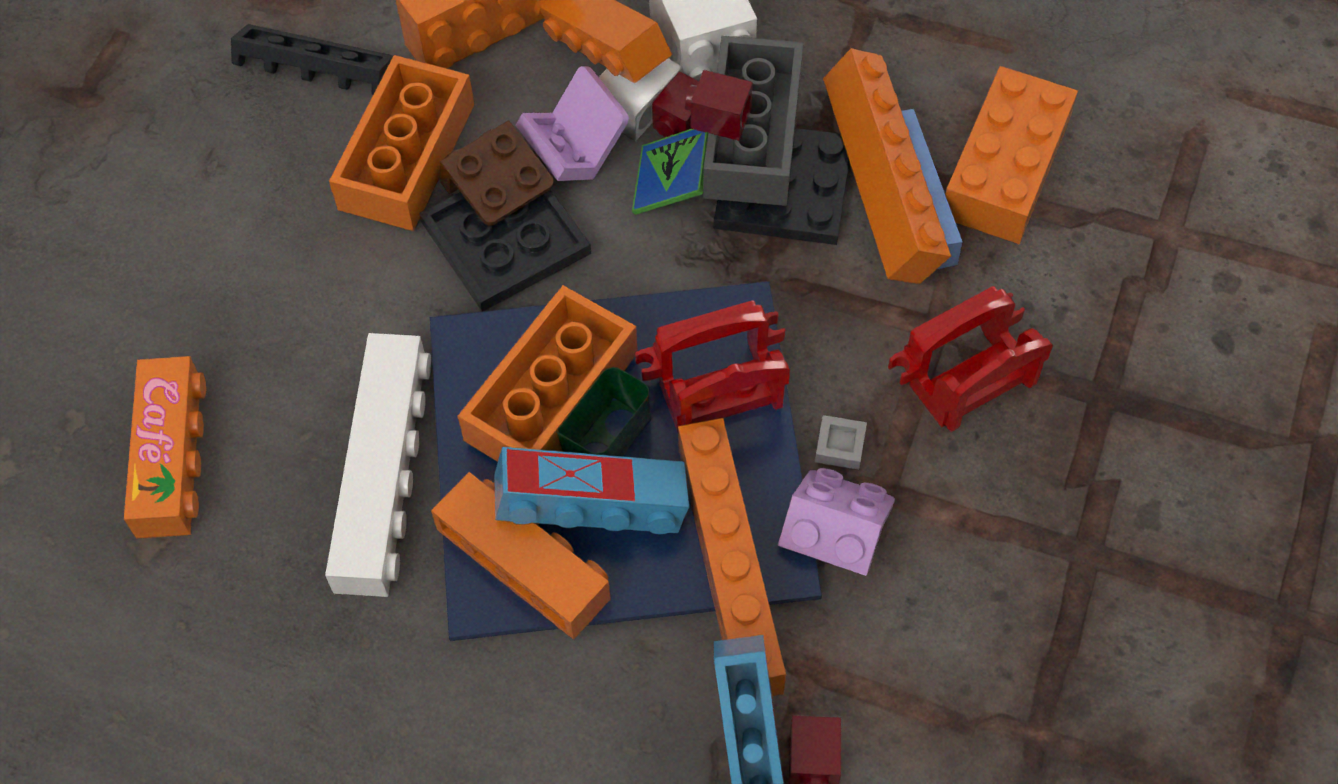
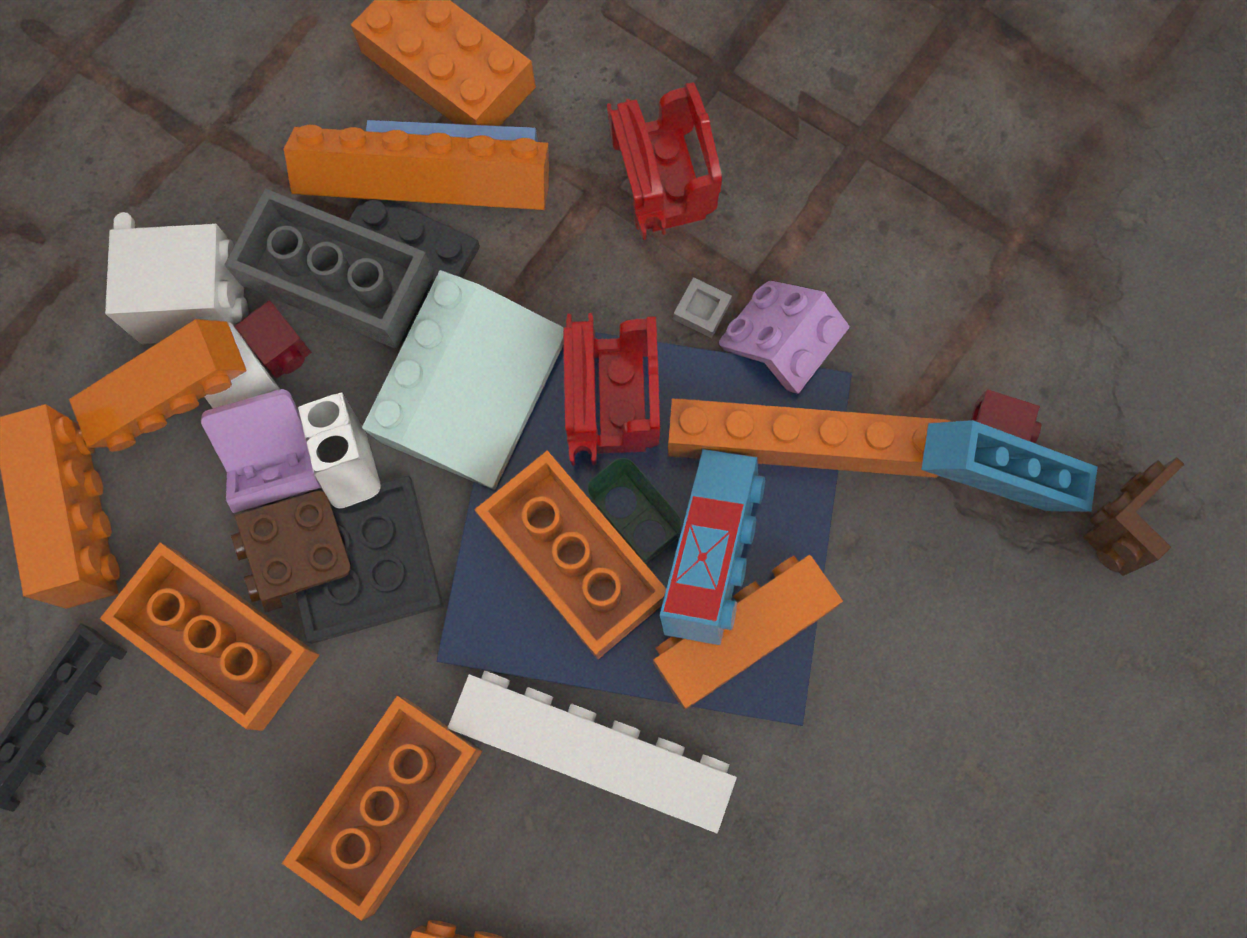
camera: 70 degrees left, 15 degrees up
(290, 308) = (382, 808): none -> orange brick
(588, 183) = (353, 476): none -> white piece
(670, 170) = (345, 362): piece -> none
(689, 254) = (465, 380): none -> light aqua slope
(720, 104) = (323, 288): dark red brick -> none

